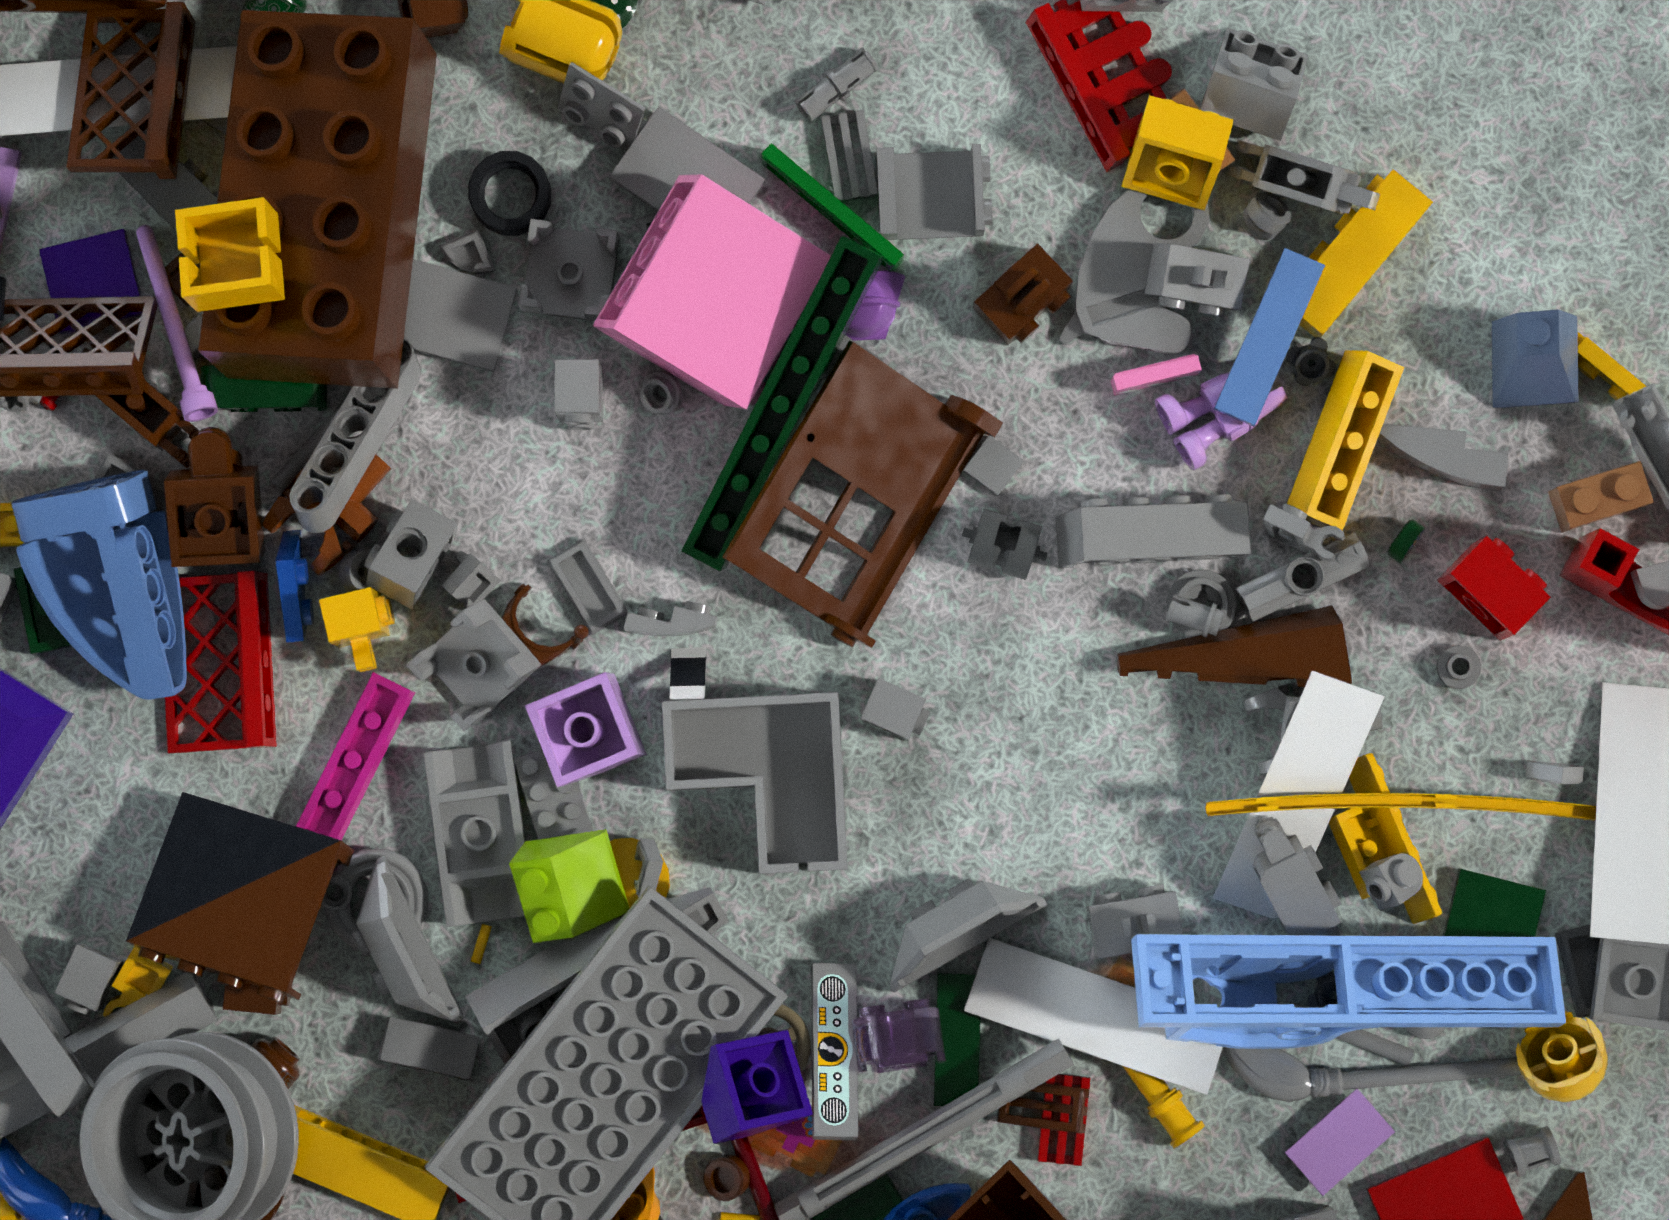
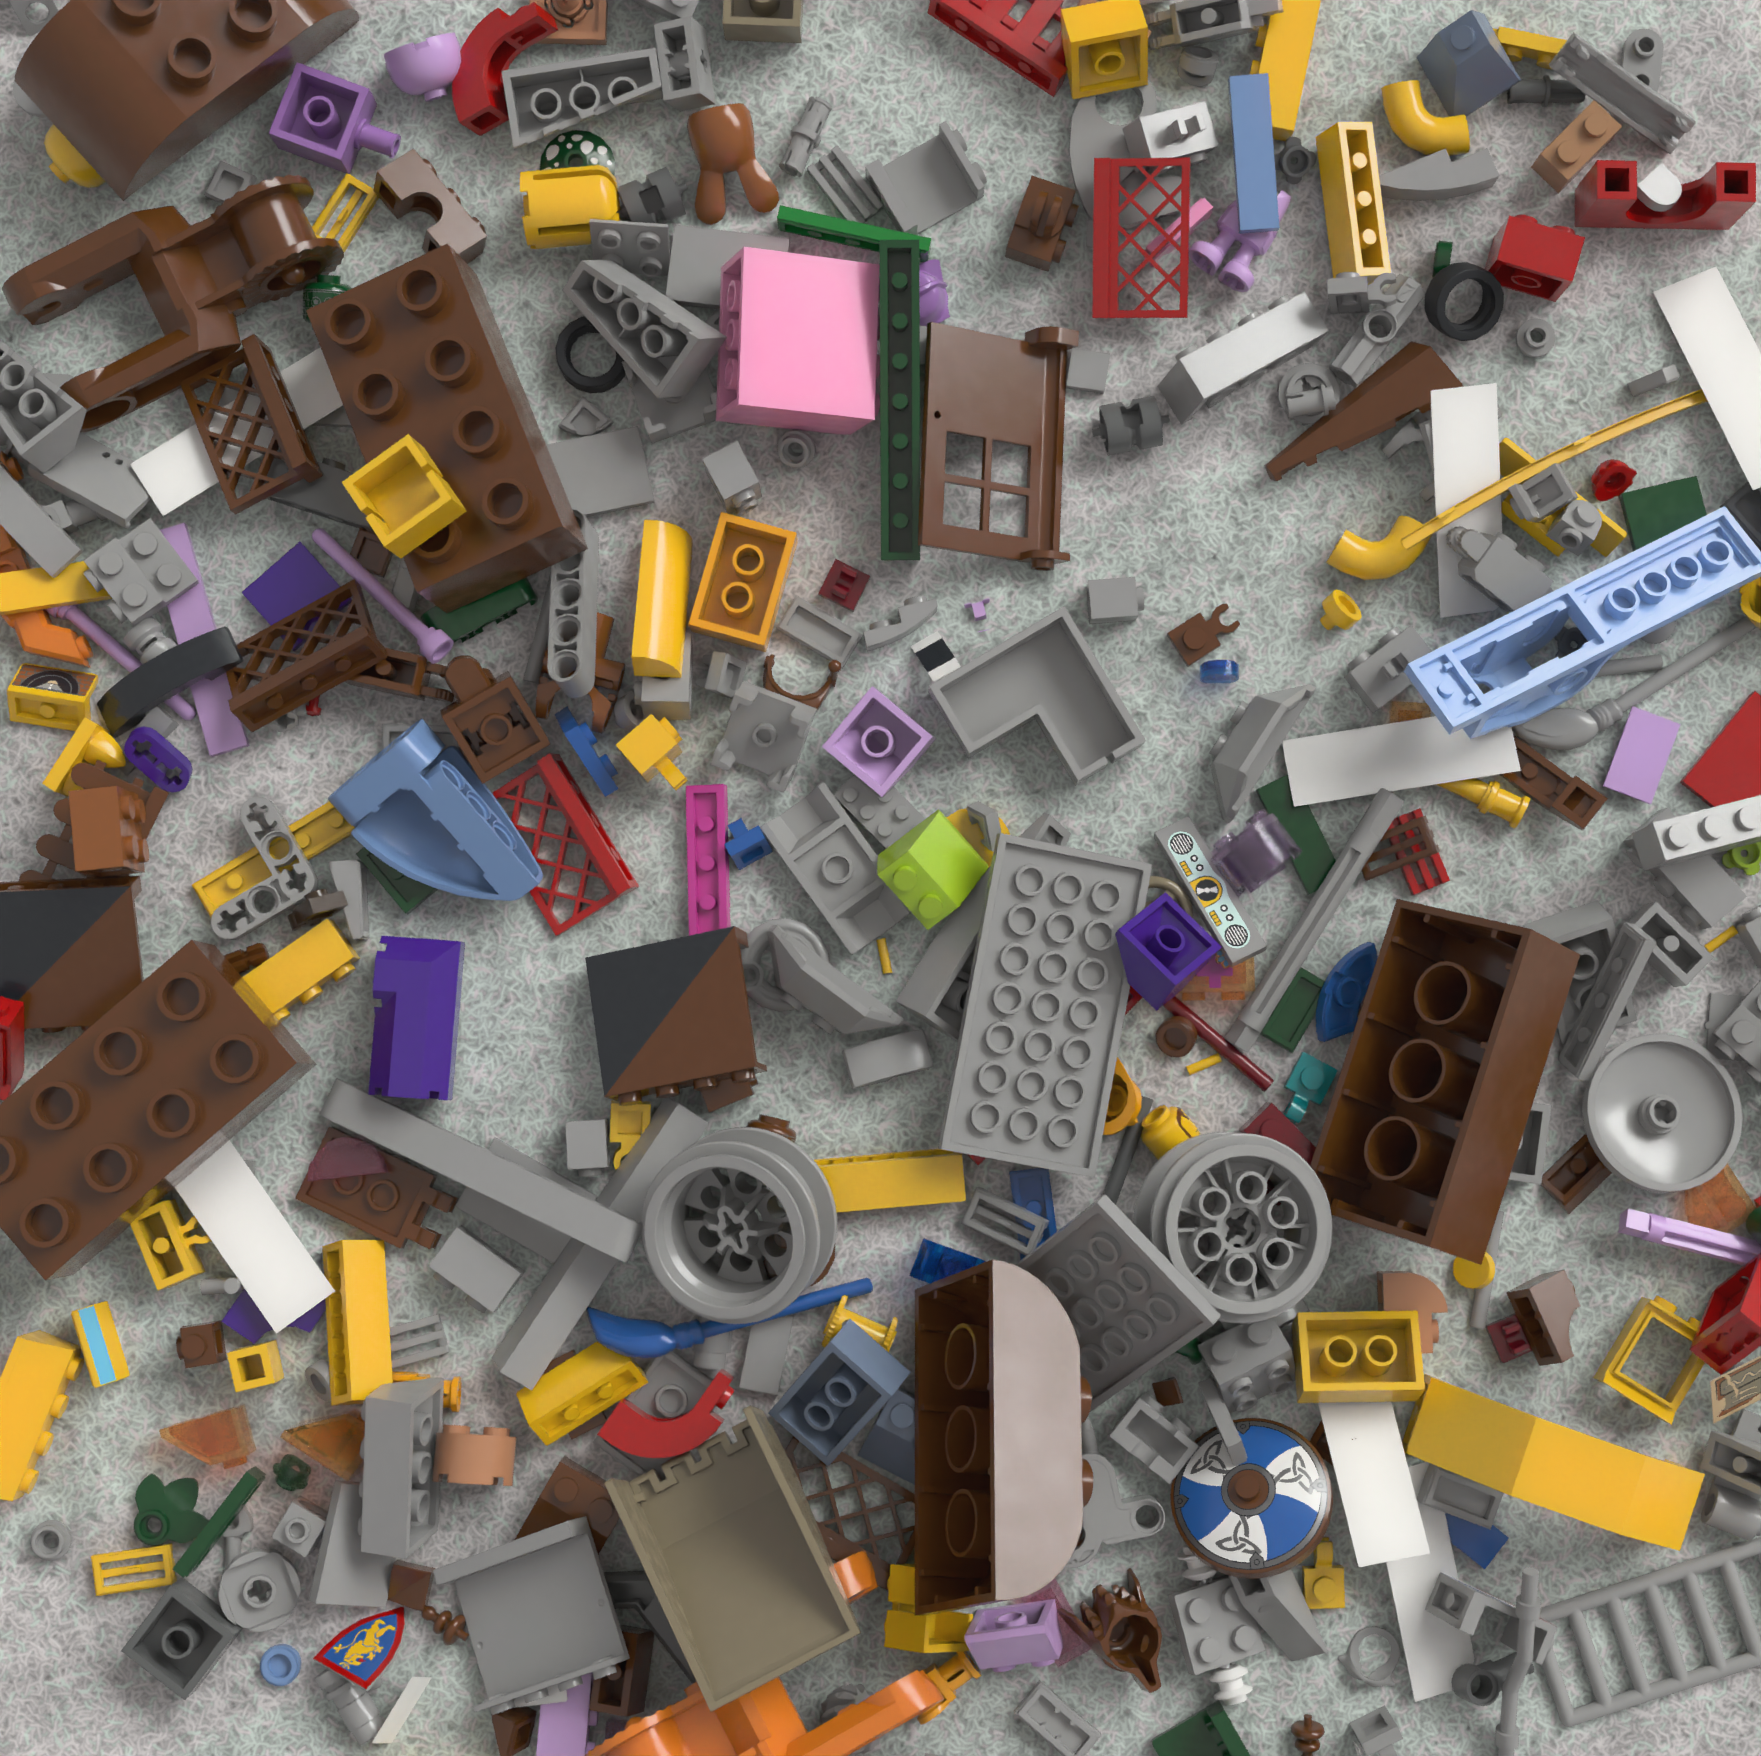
camera: 25 degrees left, 0 degrees up
(402, 762) = (746, 845): none -> blue tile
(444, 477) = (662, 600): none -> yellow brick
(536, 499) = (743, 582): none -> light orange brick
(568, 195) = (644, 326): none -> light grey wedge
(637, 553) = (844, 585): none -> dark red tile
(648, 70) = (648, 200): none -> dark grey wheel
(749, 51) = (725, 144): none -> dark orange piece
(757, 648) = (978, 609): none -> lavender piece
(959, 789) = (1198, 637): none -> reddish brown plate
(962, 836) = (1219, 671): none -> clear blue tile
(1078, 344) = (1106, 237): none -> red fence
(1115, 839) = (1340, 611): none -> yellow tile
(1180, 806) = (1377, 558): none -> yellow cylinder
(1234, 1127) = (1553, 788): none -> reddish brown slope
(1373, 830) = (1542, 494): none -> light grey bracket
(1413, 622) = (1484, 318): none -> black tyre
(1453, 395) = (1419, 128): none -> yellow cylinder
(1469, 851) = (1619, 476): none -> red animal
(1599, 422) = (1544, 92): none -> dark grey axle

